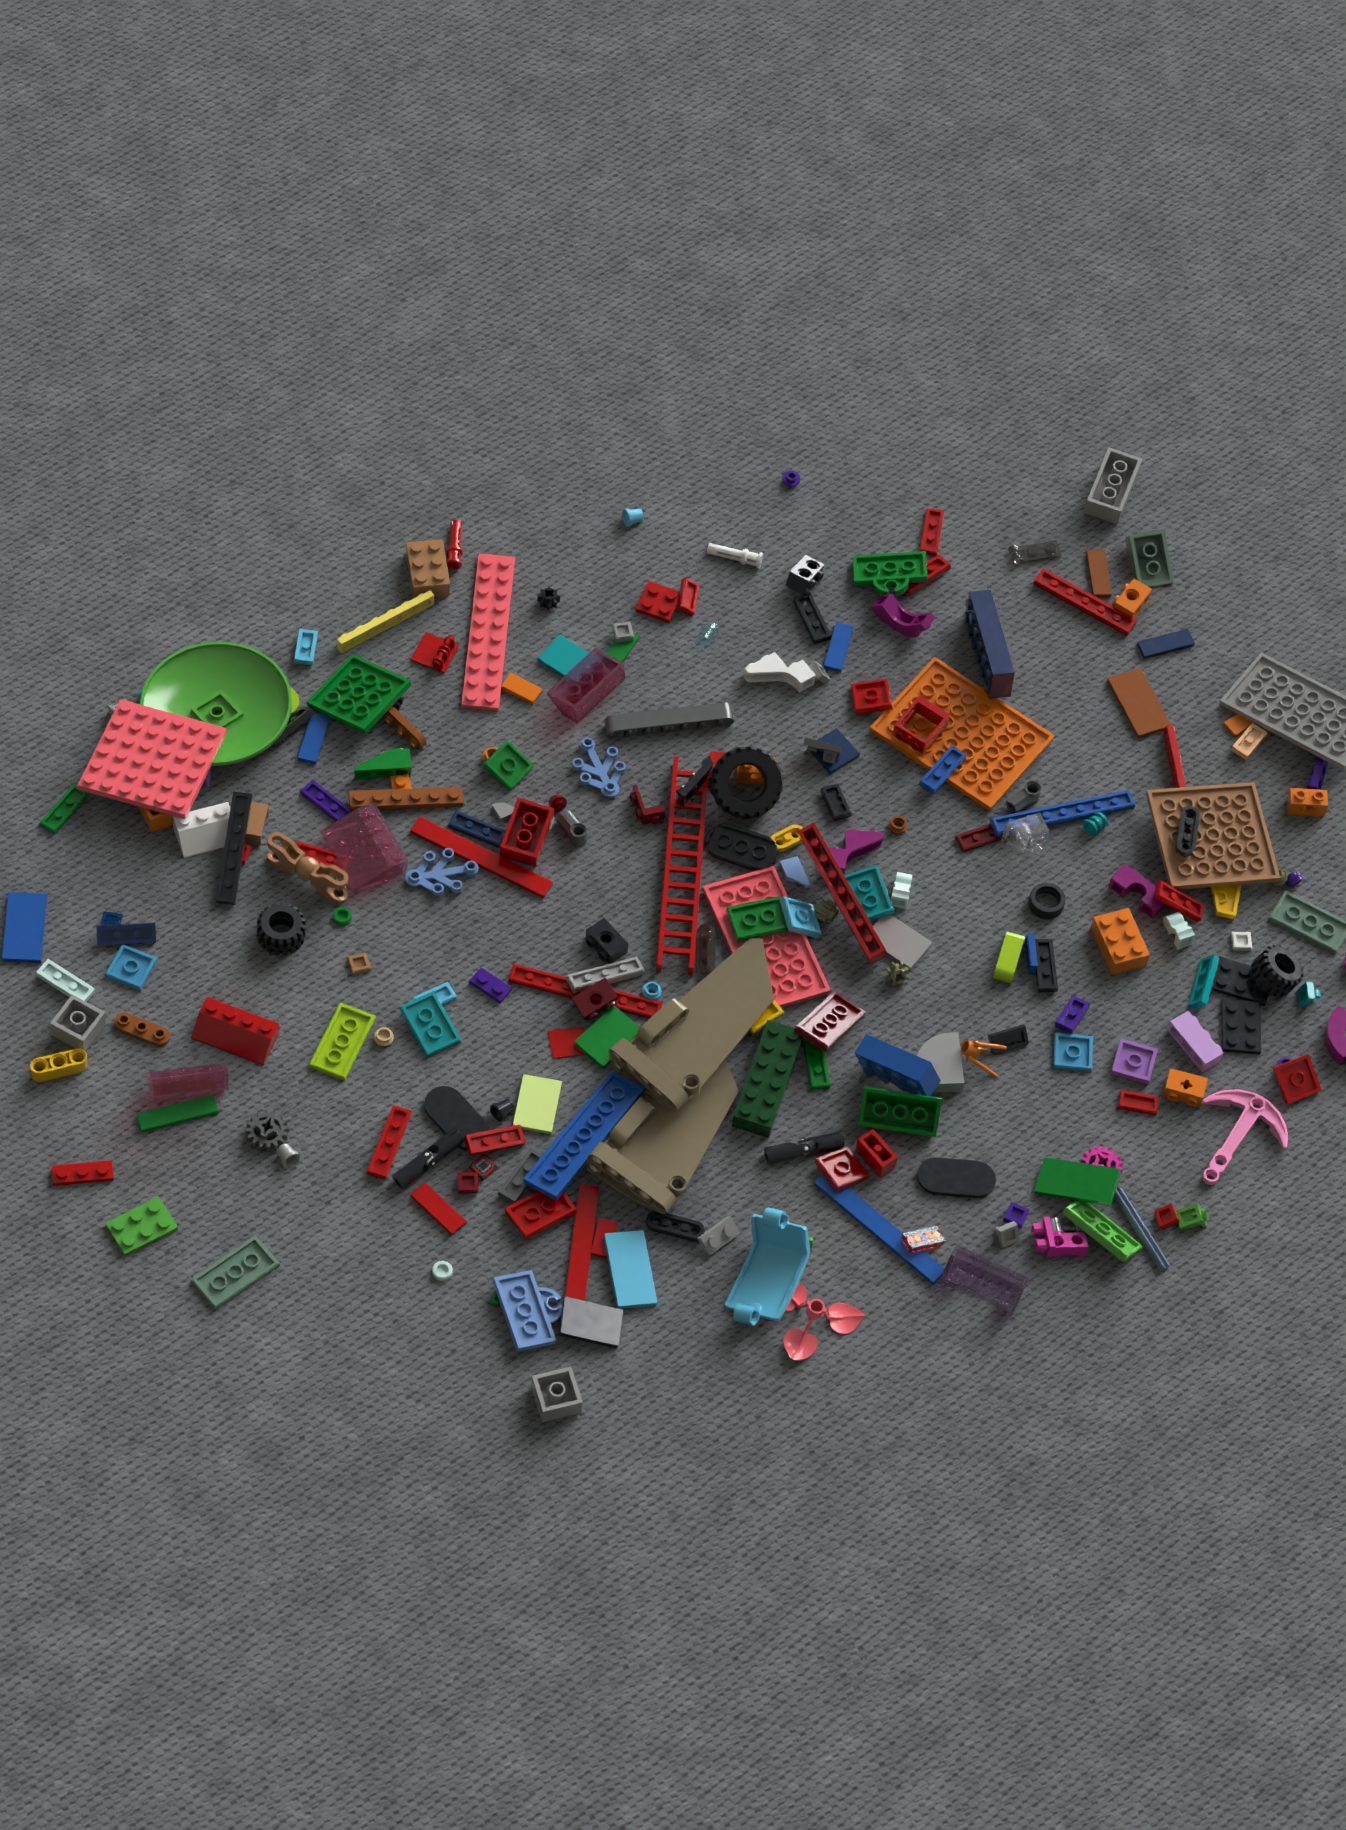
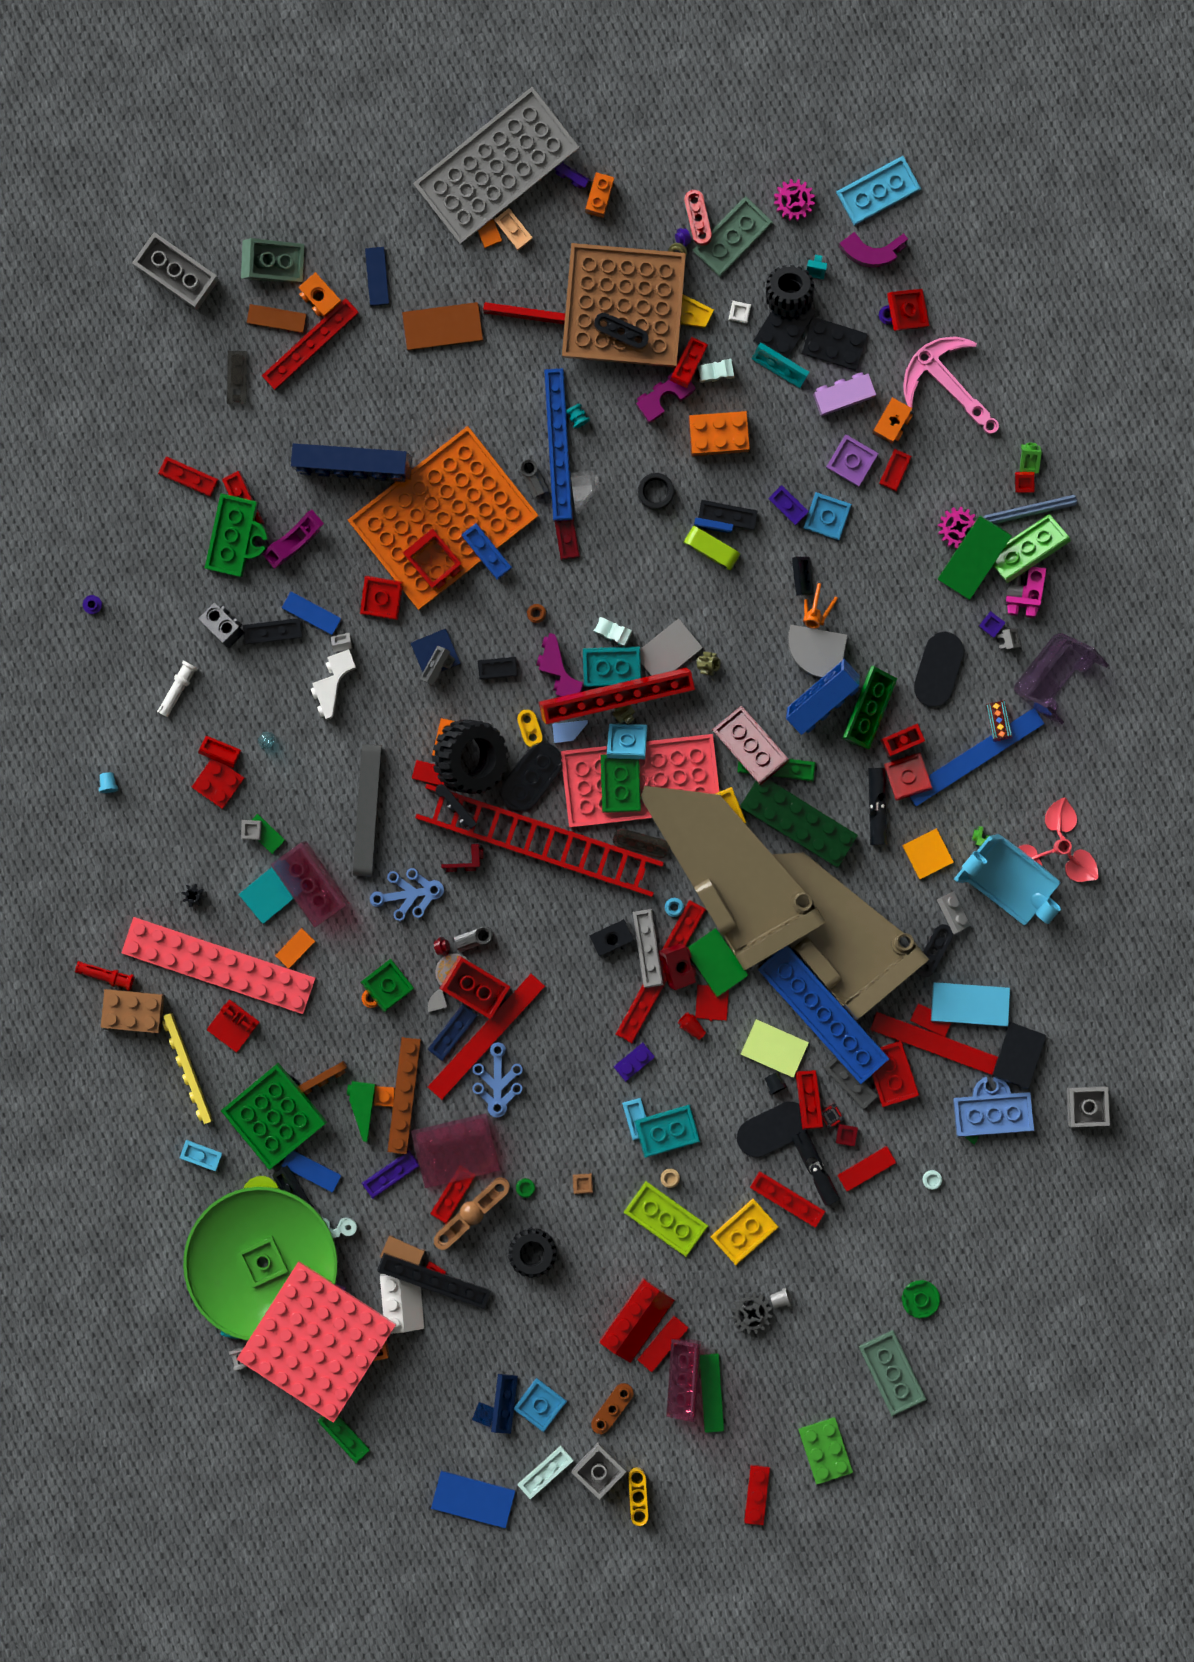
camera: 75 degrees left, 30 degrees up
(206, 1055) = (662, 1343): none -> red tile
(267, 770) = (346, 1226): none -> light aqua leg
(322, 1287) = (915, 1296): none -> green tile
(346, 1112) = (744, 1231): none -> yellow tile
(540, 1025) = (691, 1025): none -> red cone
(771, 1196) = (927, 854): none -> light orange tile
(1317, 886) = (698, 210): none -> plate

